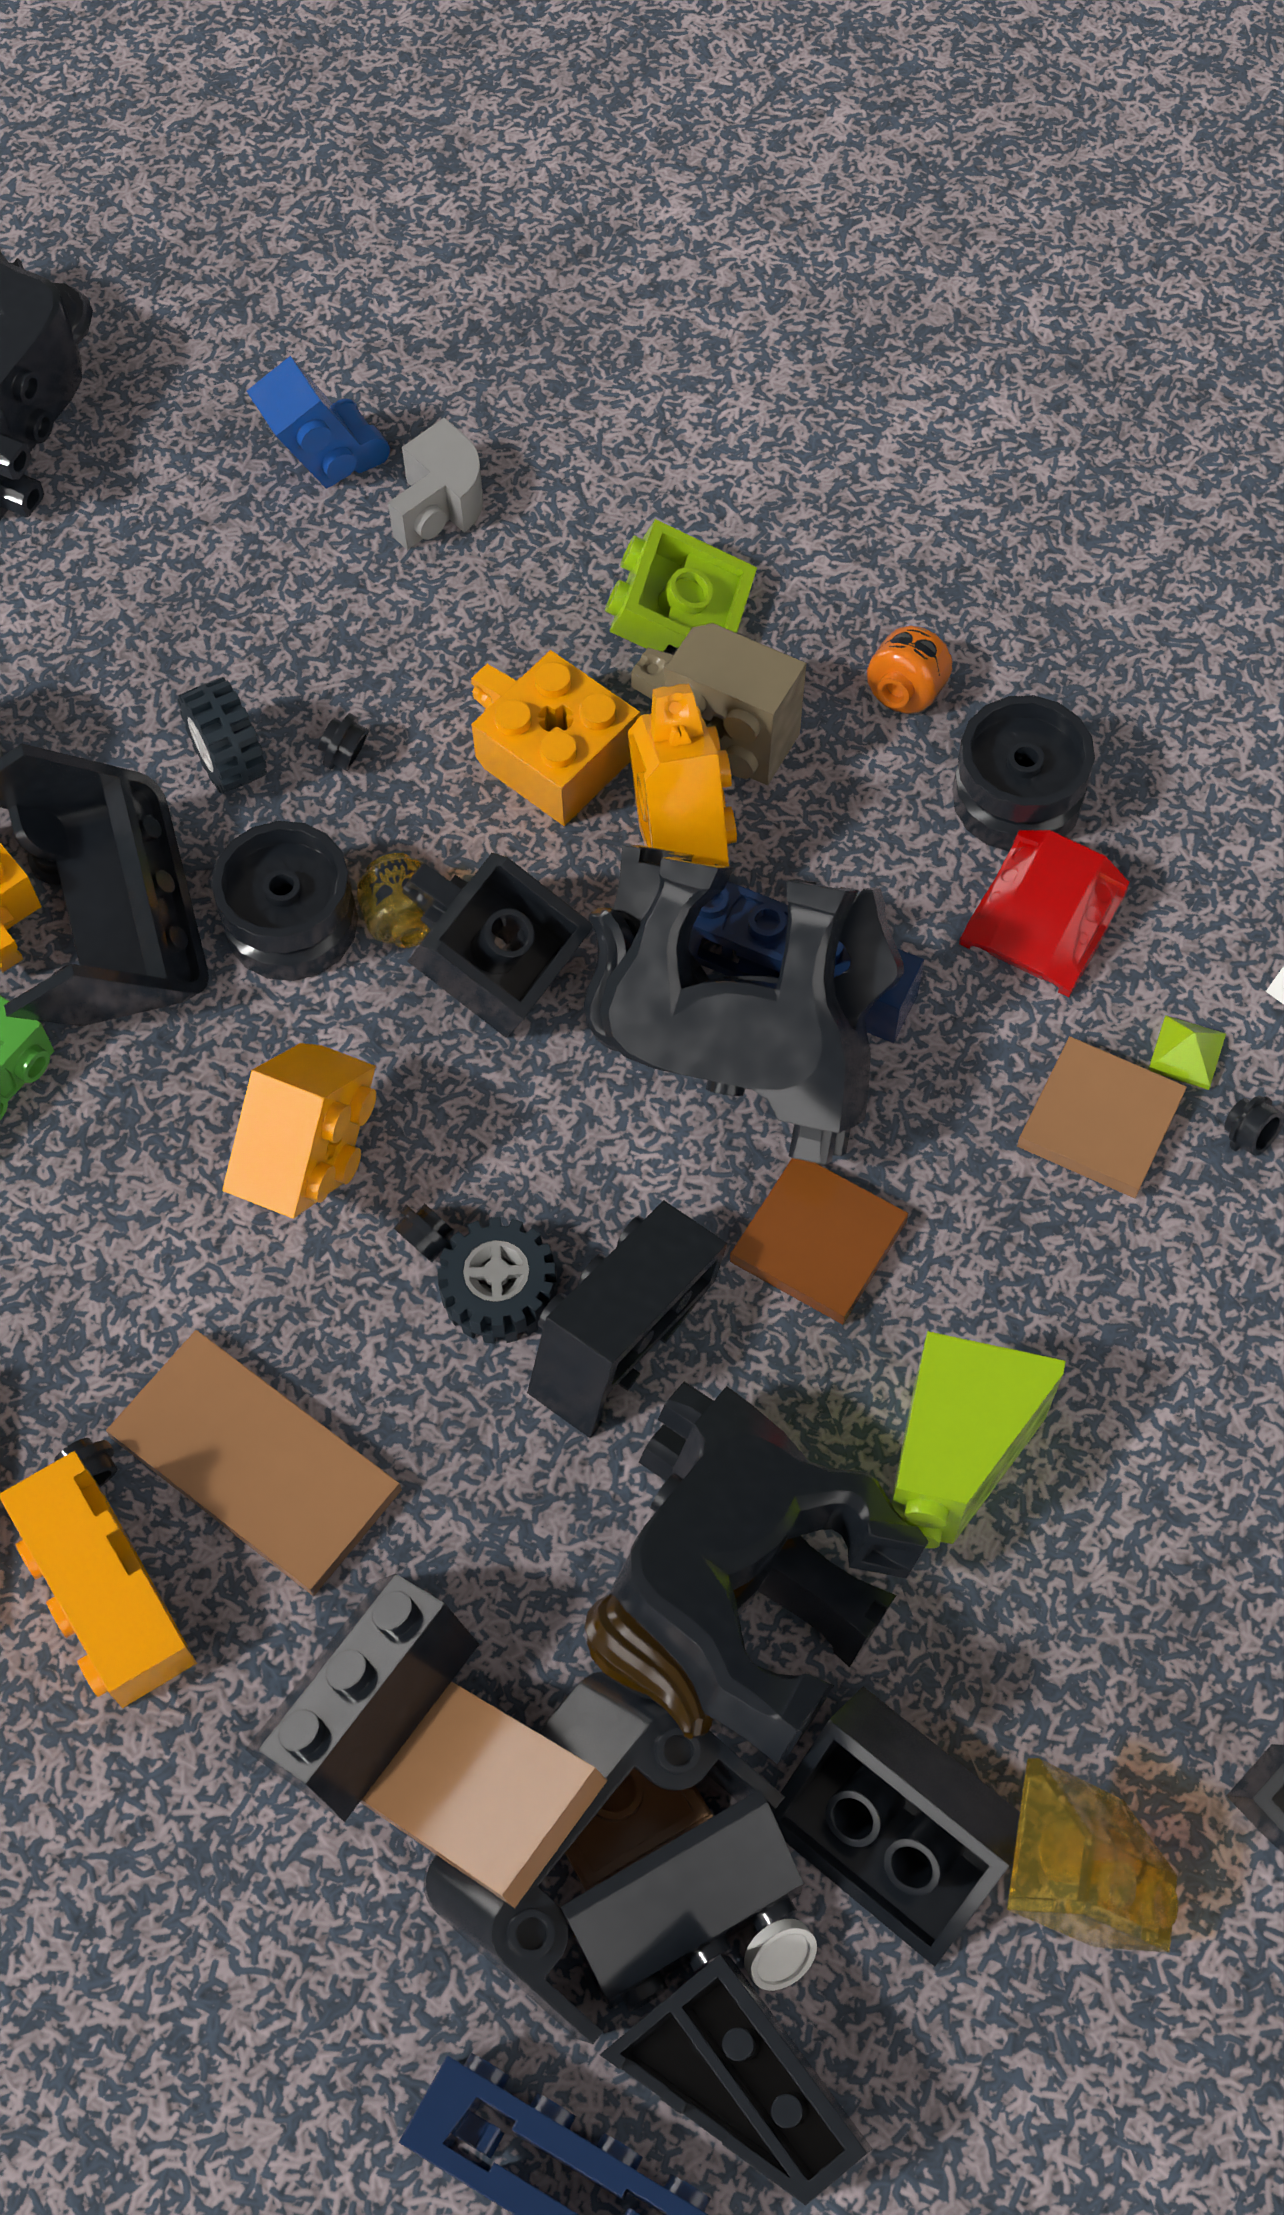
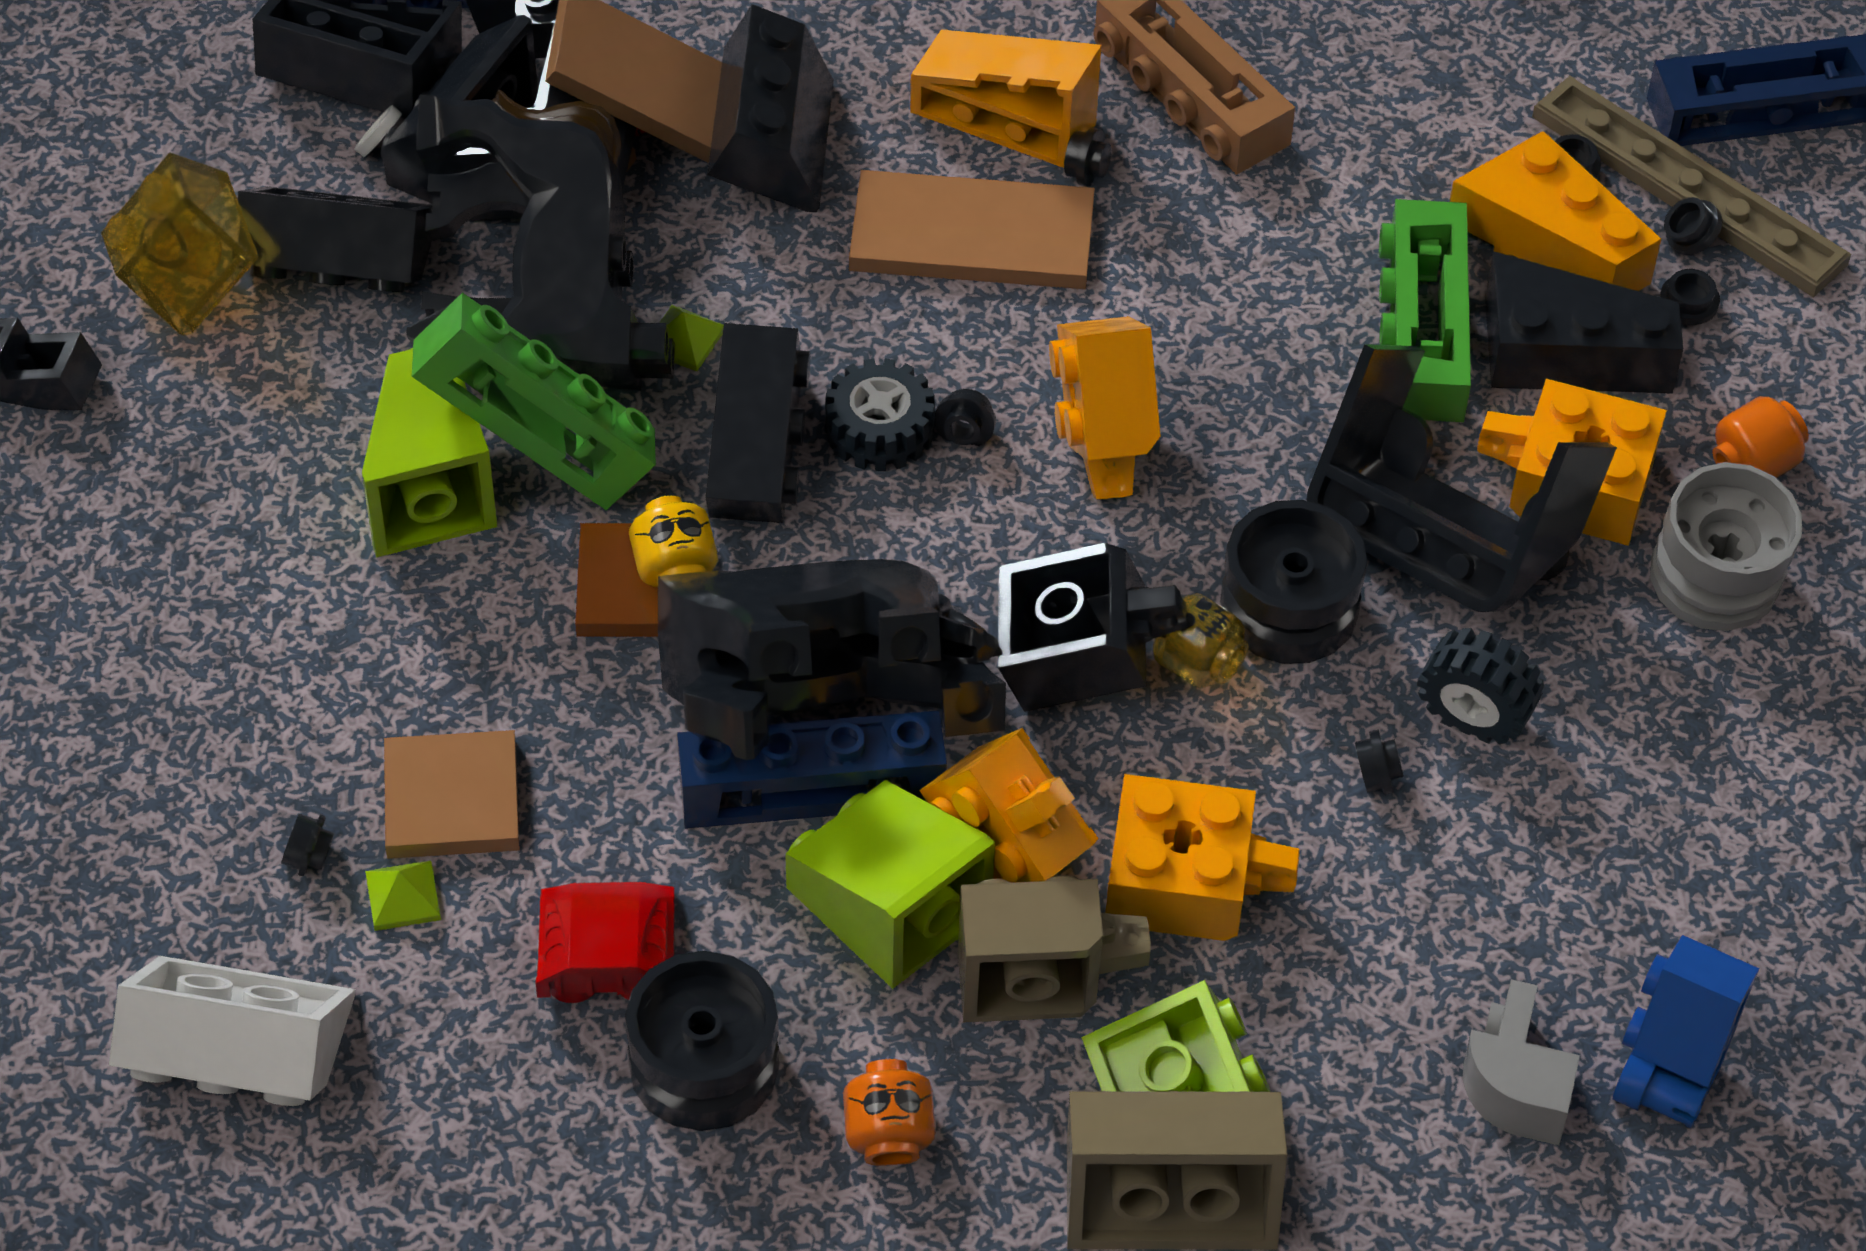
camera: 145 degrees right, 10 degrees down
(613, 1494) = (692, 336): none -> lime slope
(741, 505) = (1175, 1170): none -> dark tan slope
(789, 1206) = (672, 539): none -> yellow head
(795, 808) = (889, 877): none -> lime slope
(855, 1373) = (534, 400): none -> bright green brick

